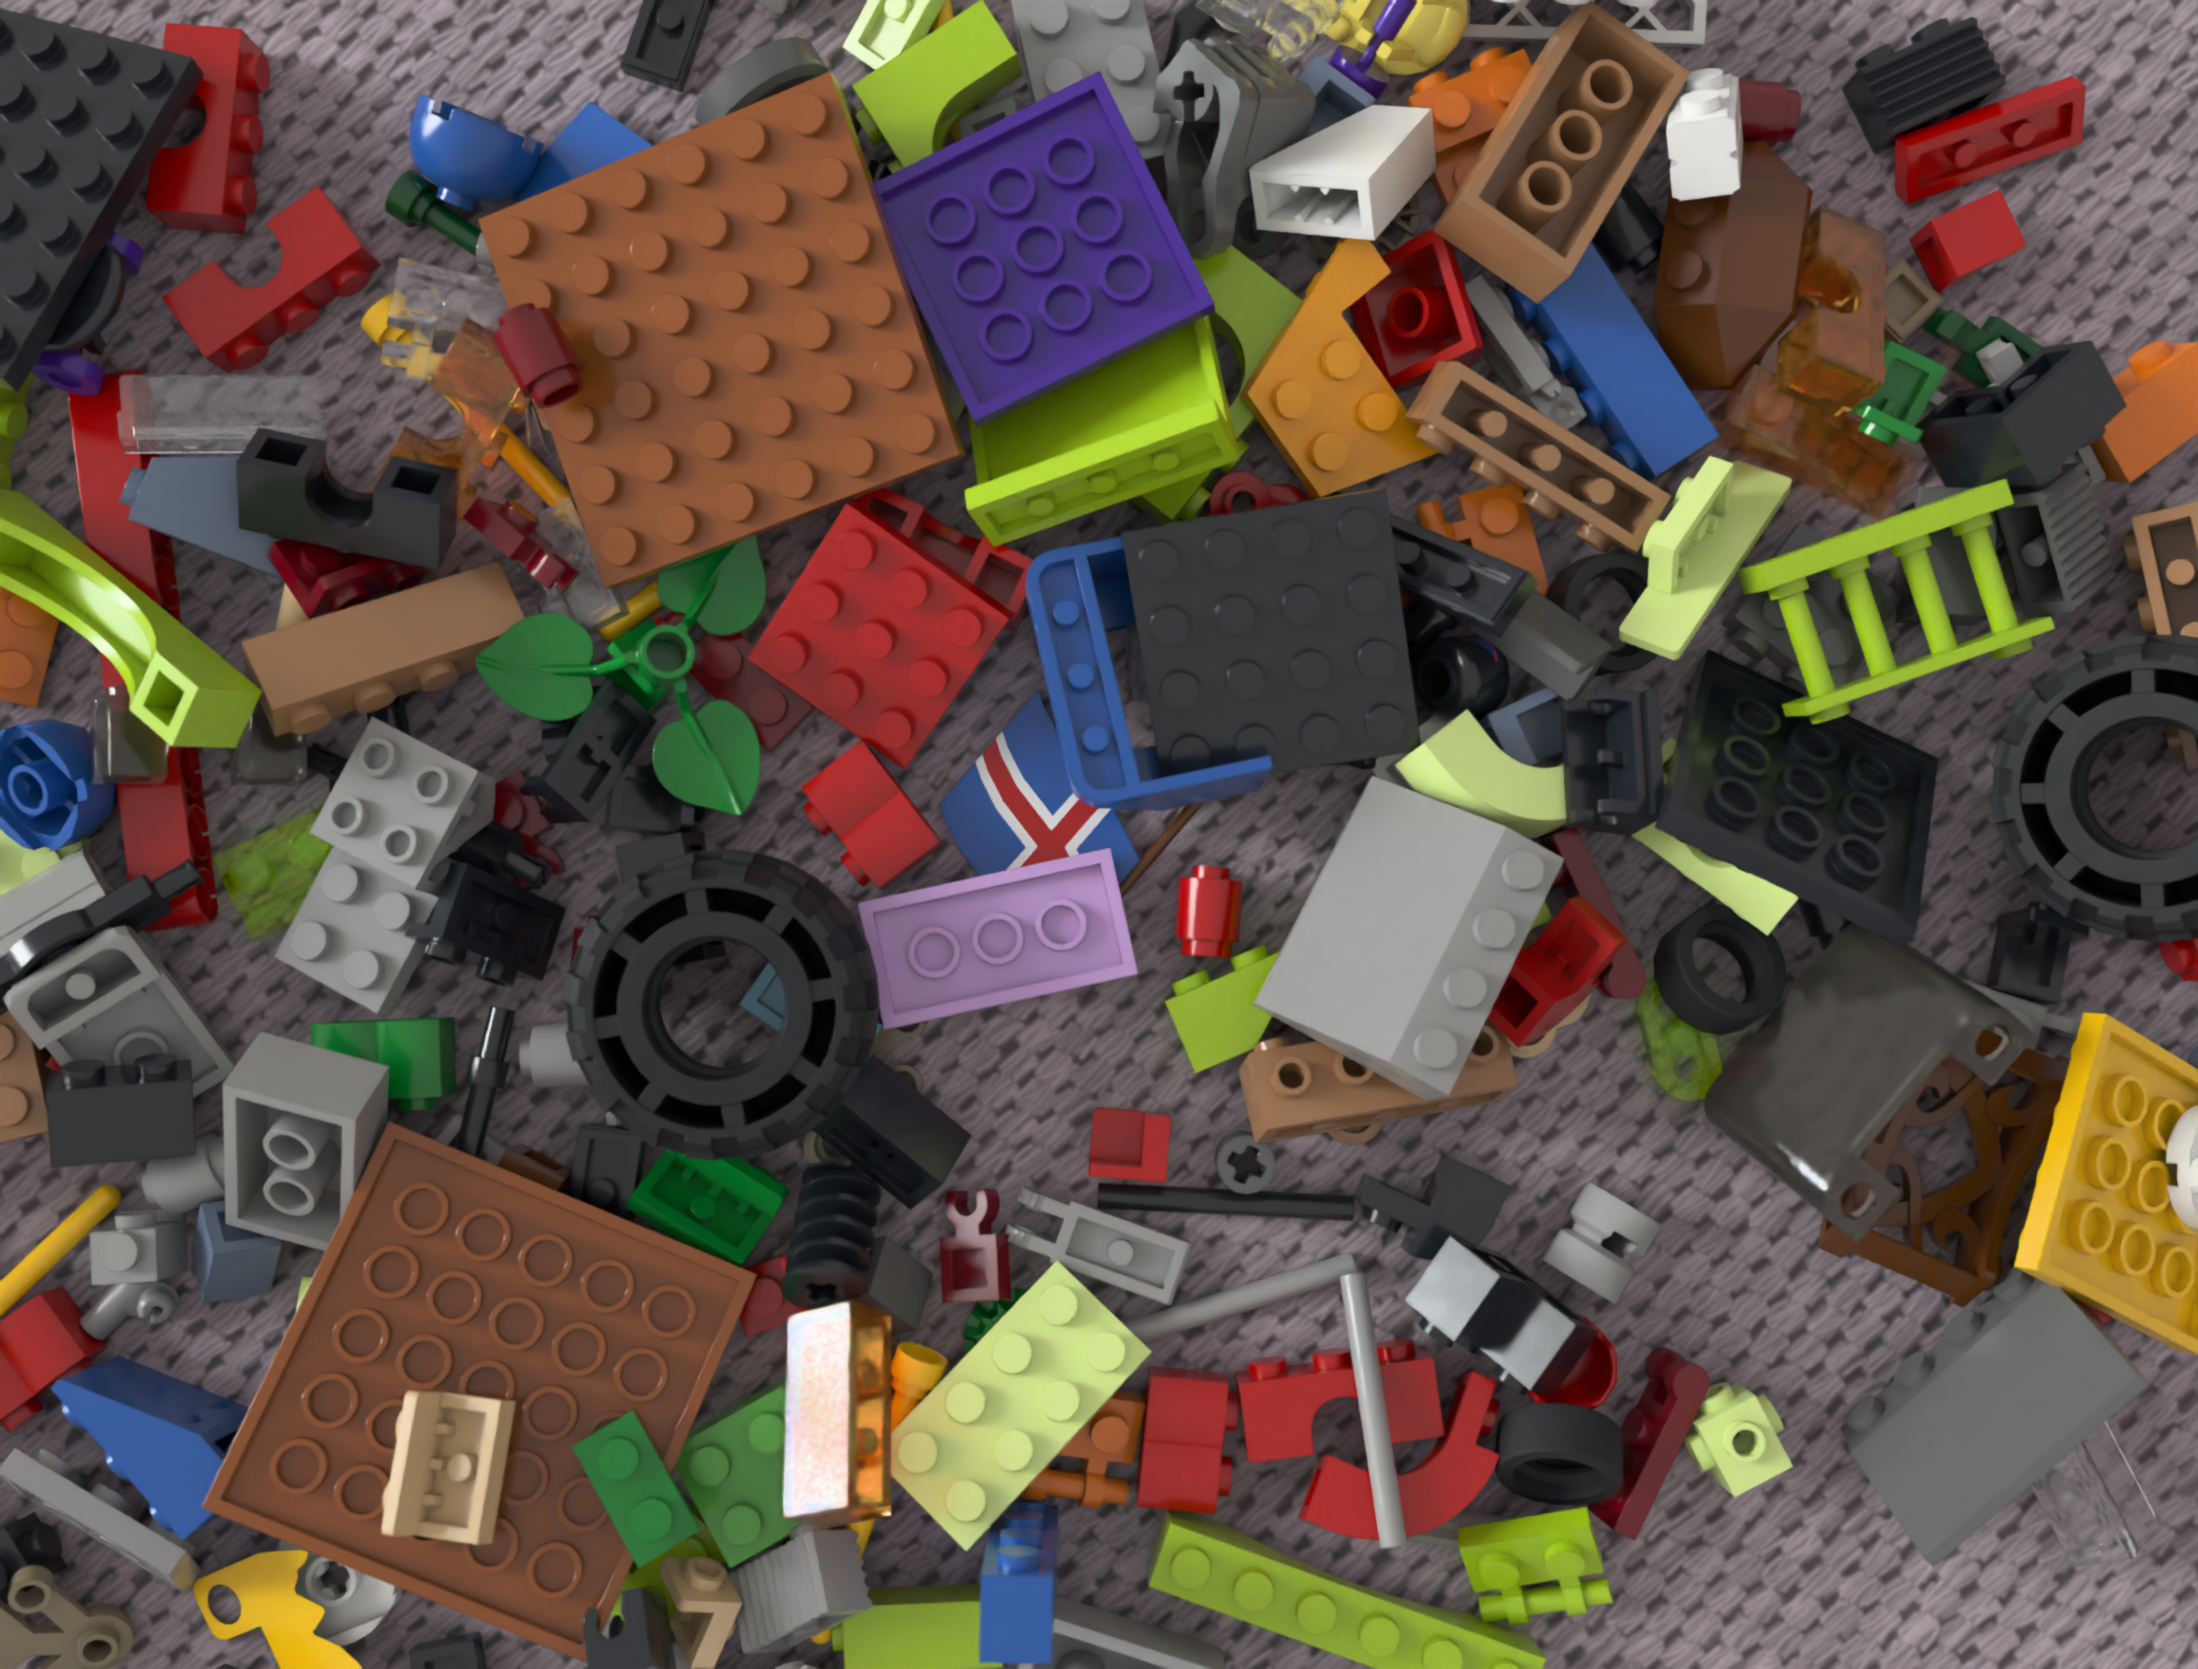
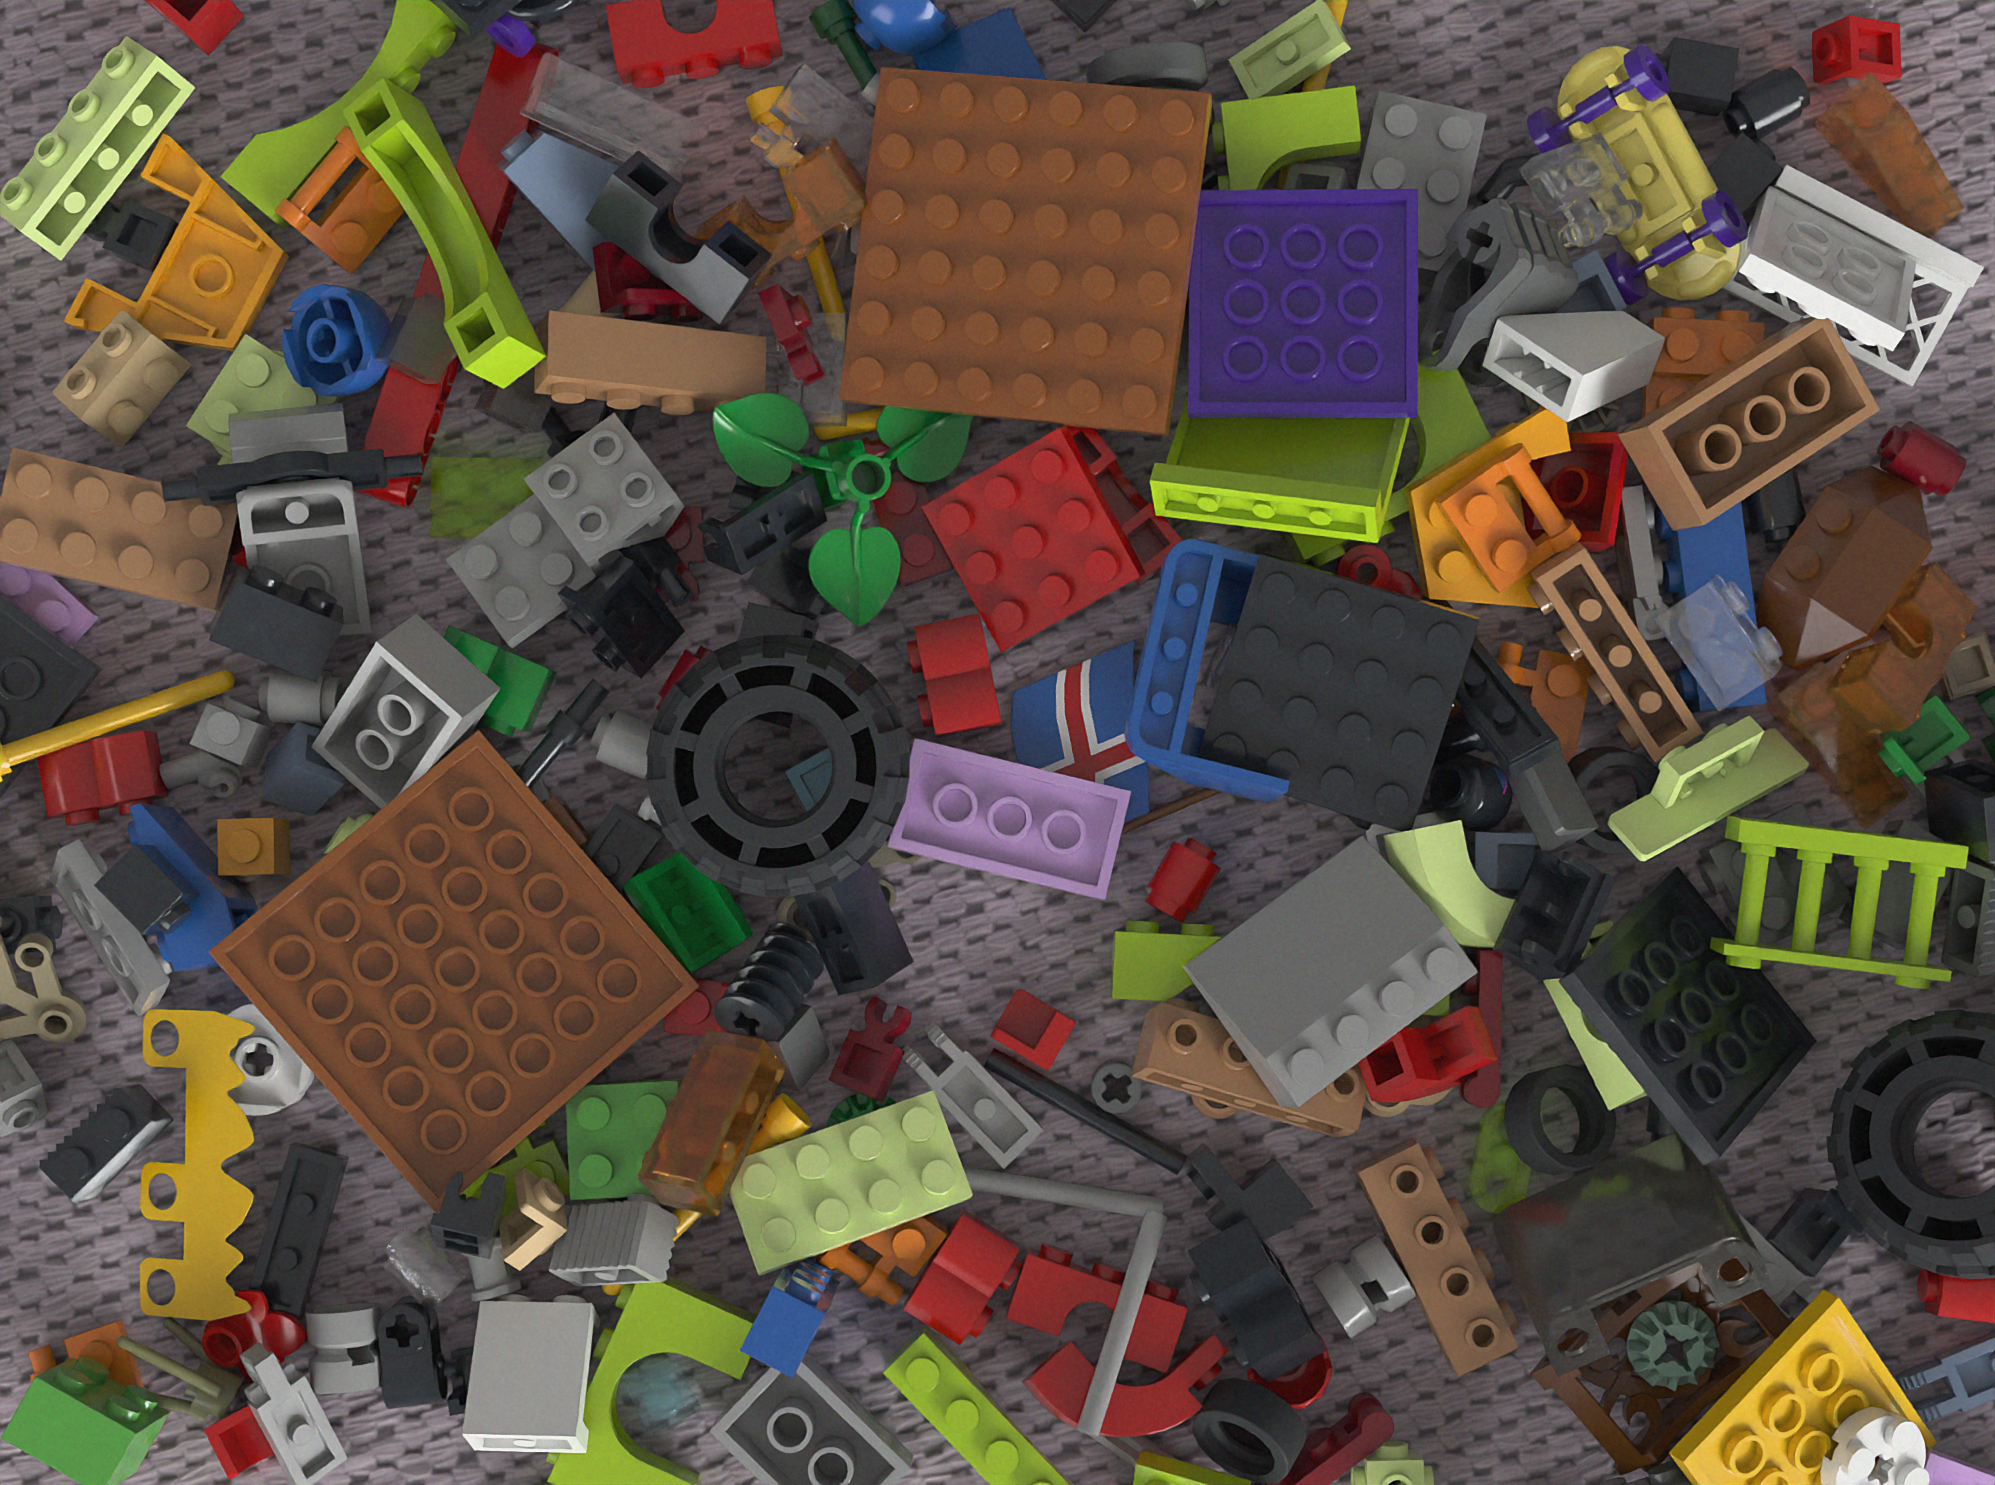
camera: 30 degrees right, 0 degrees up
(107, 1471) = (148, 891): none -> black brick
(217, 1358) = (253, 847): none -> light orange brick
(448, 1466) = (407, 1012): tan bracket -> none
(539, 355) = (879, 199): dark red brick -> none
(636, 1488) = (534, 1100): green plate -> none
(1350, 390) = (1492, 528): none -> orange plate
(1643, 394) = (1721, 641): none -> clear bracket
(1661, 1174) = (1436, 1257): none -> medium nougat brick
(1705, 136) = (1869, 465): white brick -> none
(1927, 1160) = (1647, 1342): none -> sand green gear

